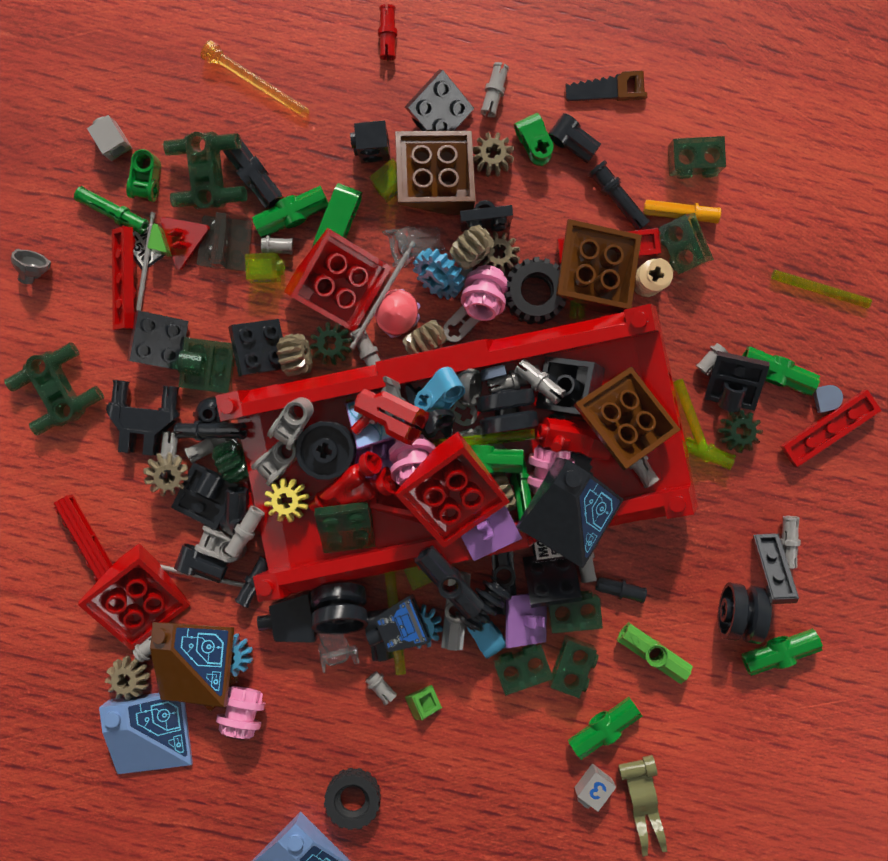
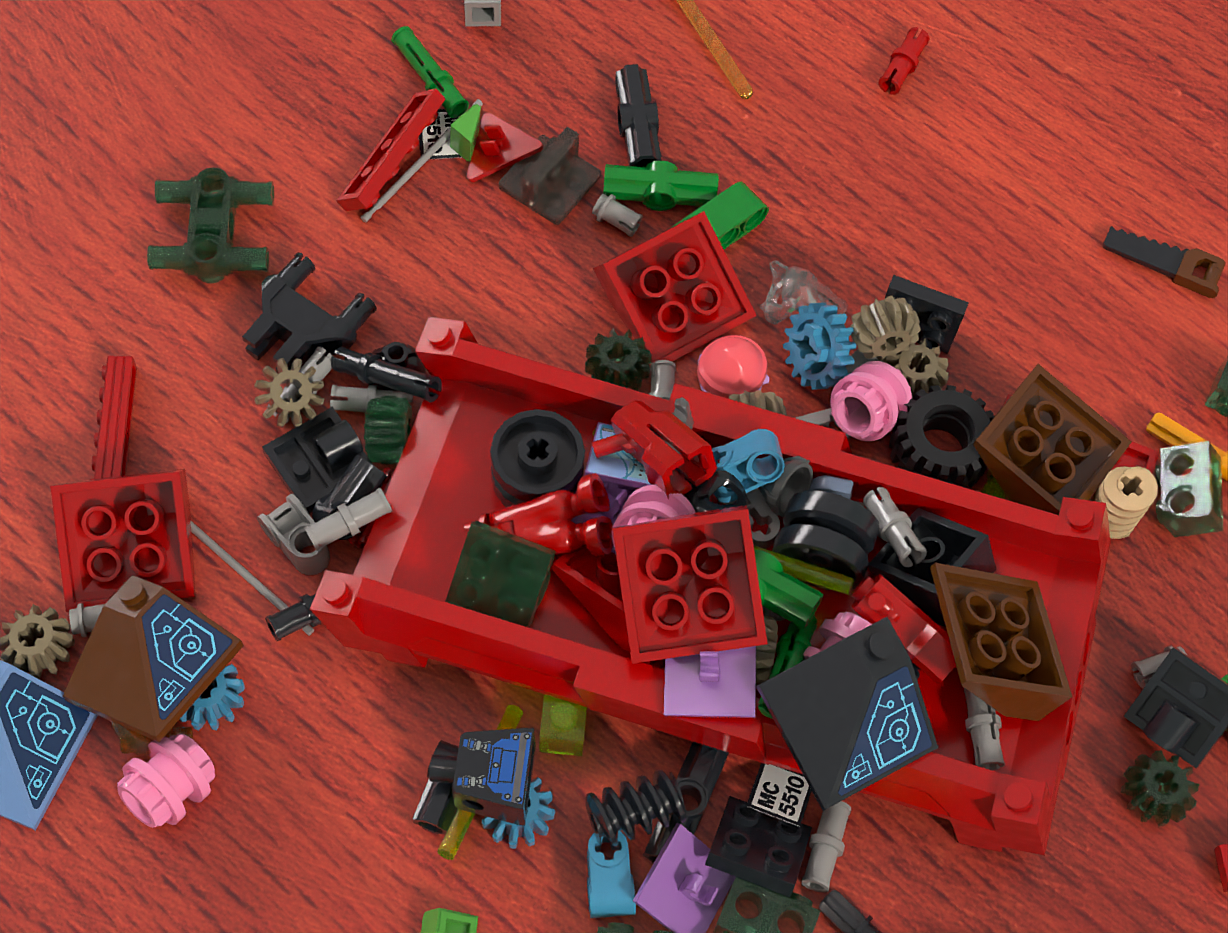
camera: 25 degrees right, 25 degrees down
(29, 265) = (283, 77): dark grey piece -> none
(142, 181) = (494, 58): green piece -> none
(157, 339) = (388, 237): black plate -> none
(194, 562) = (246, 538): black piece -> none
(205, 170) = (580, 83): clear green piece -> none
(206, 365) = (426, 292): clear green plate -> none
(256, 346) = (517, 312): black plate -> none
(264, 267) = (584, 229): clear neon green brick -> none
(273, 463) = (455, 443): light grey piece -> none
(282, 508) = (440, 487): light yellow gear -> none
(290, 426) = (511, 390): light grey piece -> none
(290, 619) = (330, 690): black torso -> none
(294, 355) = (562, 341): dark tan gear -> none
(335, 650) = (366, 766): clear hair -> none
(338, 608) = (414, 701): black wheel -> none
(371, 141) = (816, 155): black brick -> none
(380, 687) = (397, 870): light grey pin -> none
(383, 294) = (726, 332): light grey piece -> none
(385, 180) = (814, 214): clear neon green brick -> none
(435, 170) = (881, 227): reddish brown slope -> none
(439, 105) = (926, 166): plate -> none
(439, 571) = (604, 692): black piece -> none
(453, 628) = (568, 836): light grey piece -> none
(494, 89) = (1011, 185): light grey pin -> none
(501, 158) = (969, 253): dark tan gear -> none
(533, 135) = (1036, 266): green piece -> none
(569, 135) = (1087, 282): black piece -> none
(611, 186) = (1116, 372): black pin -> none
(691, 415) = (1093, 726): clear neon green bar -> none
(713, 454) = (1097, 797): clear neon green pin -> none

